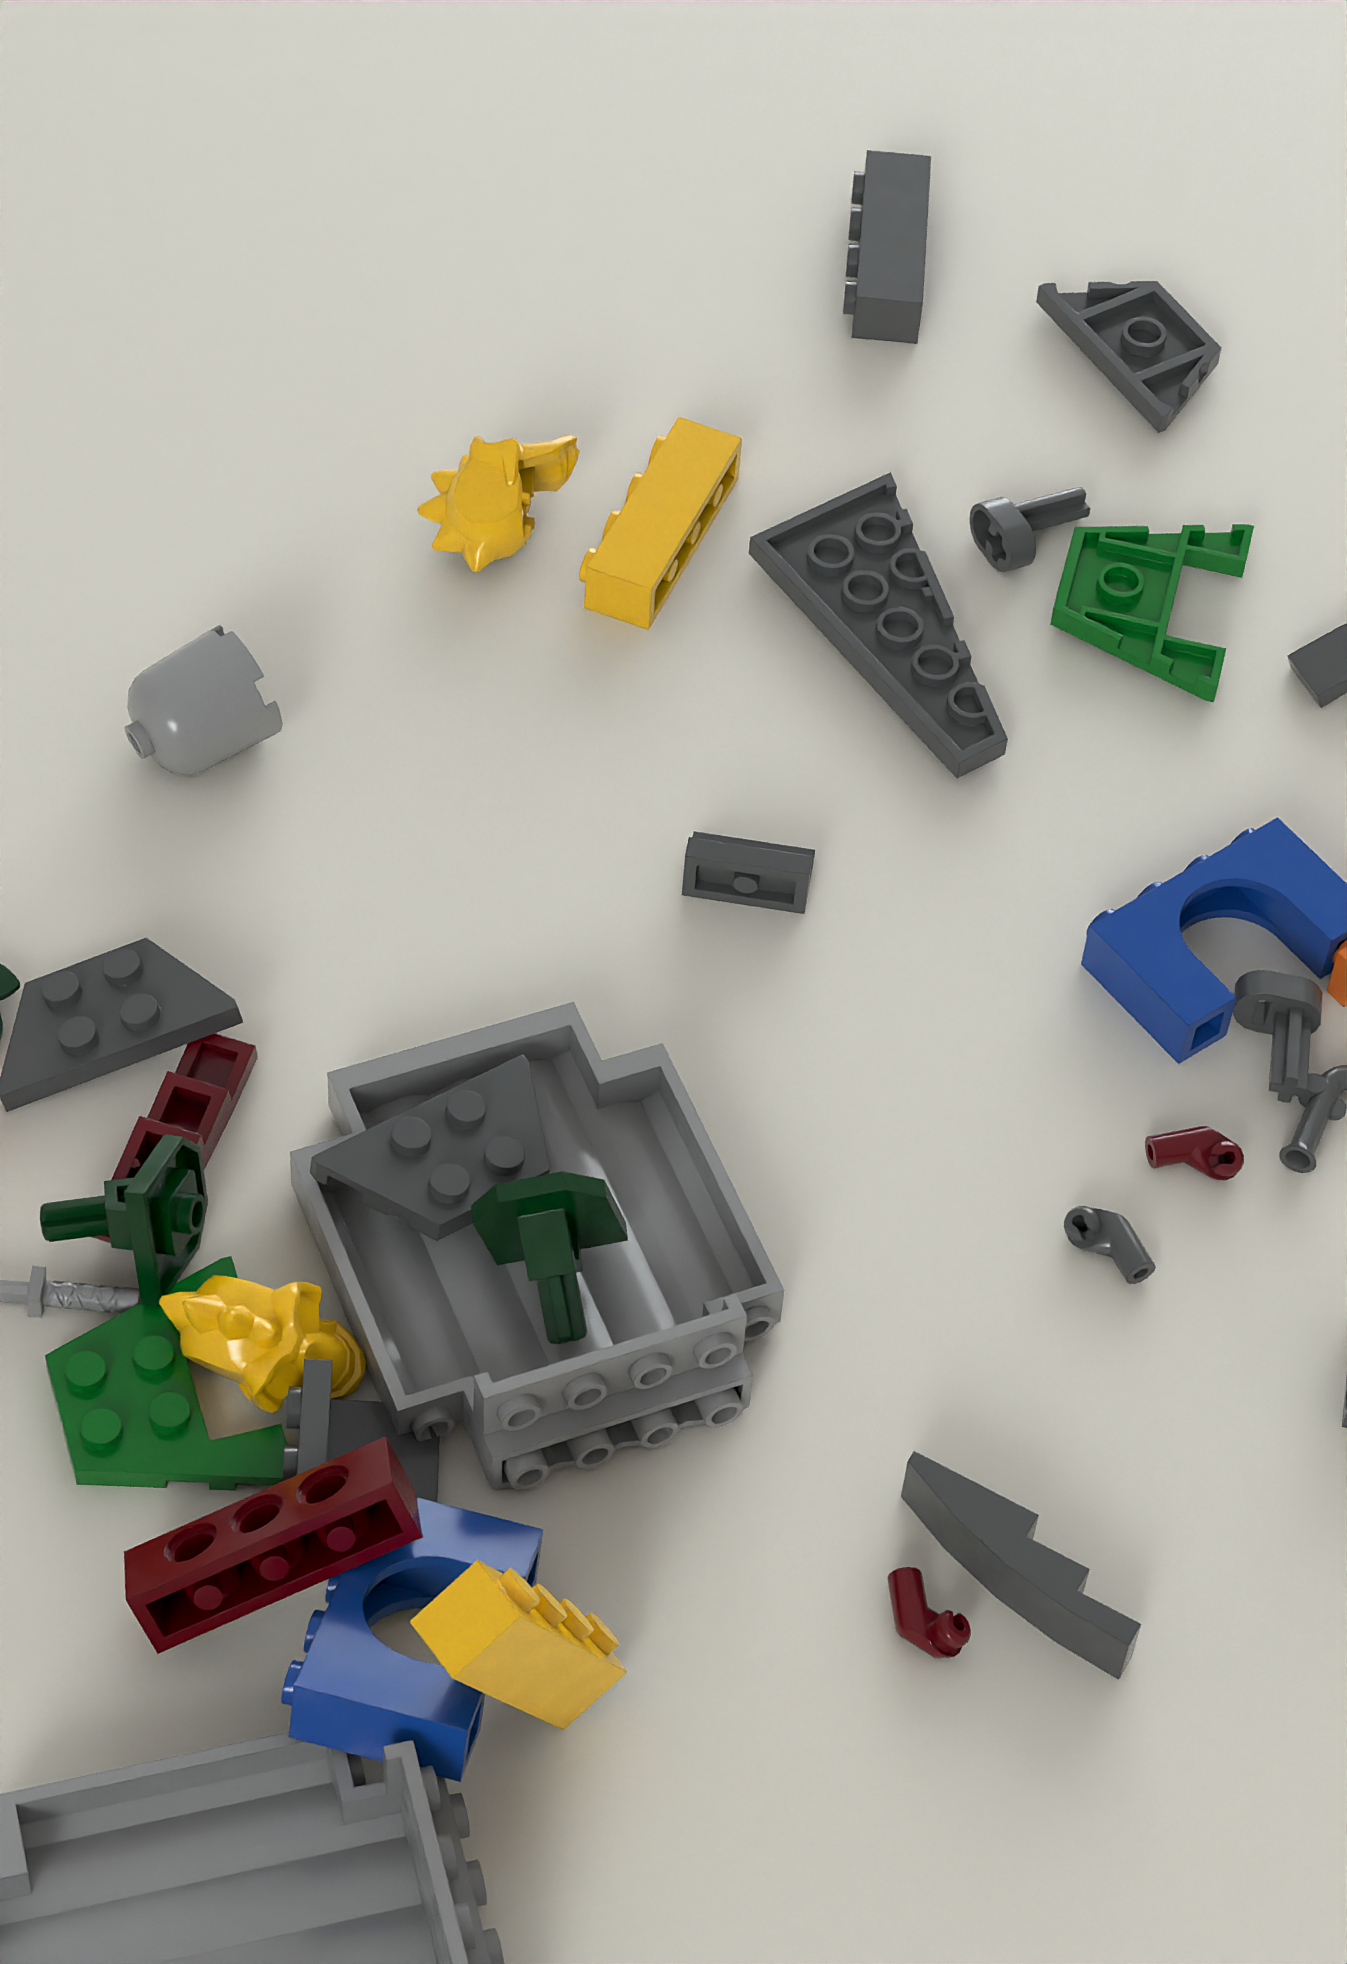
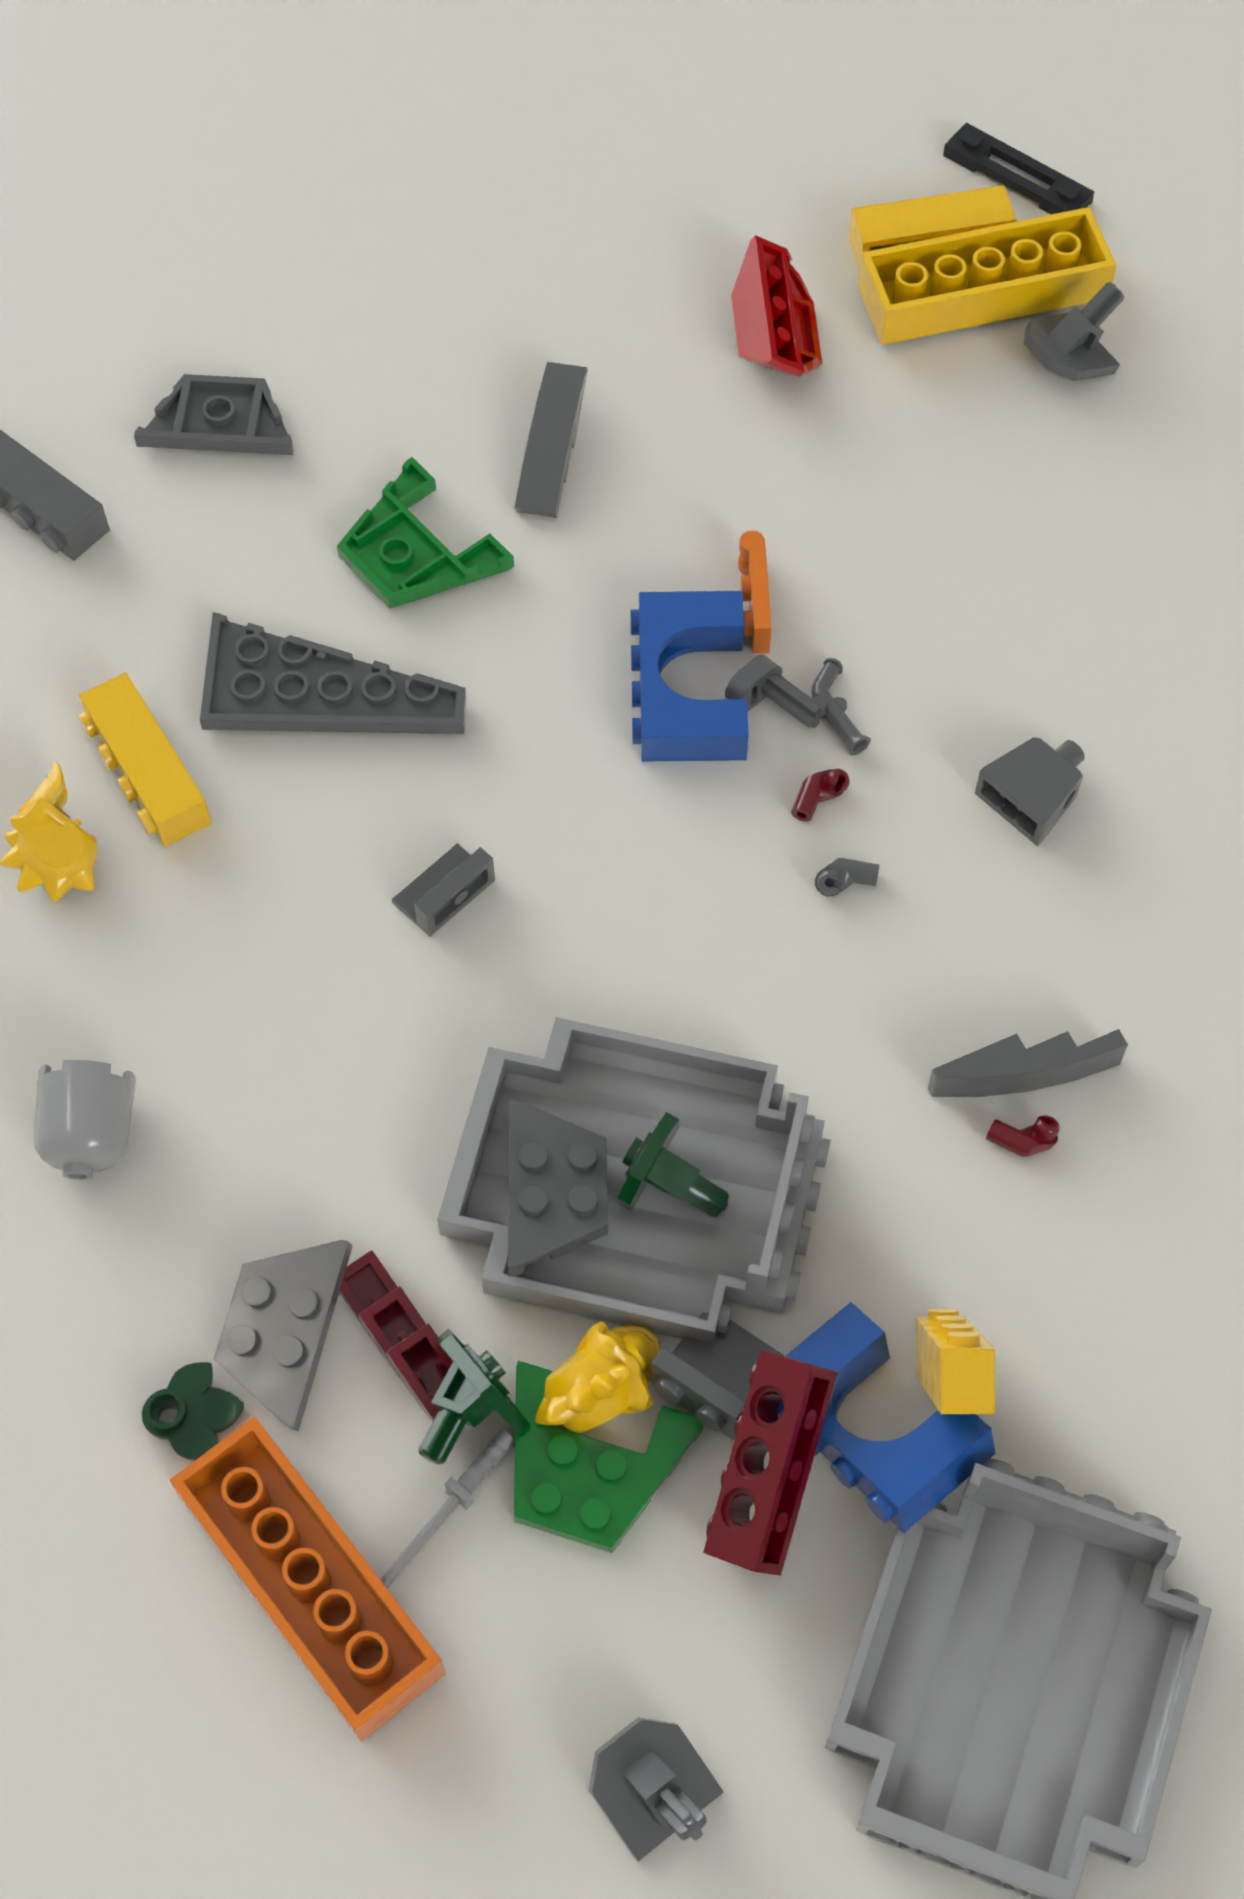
camera: 50 degrees left, 10 degrees up
(1006, 529) = (302, 581): dark grey piece -> none

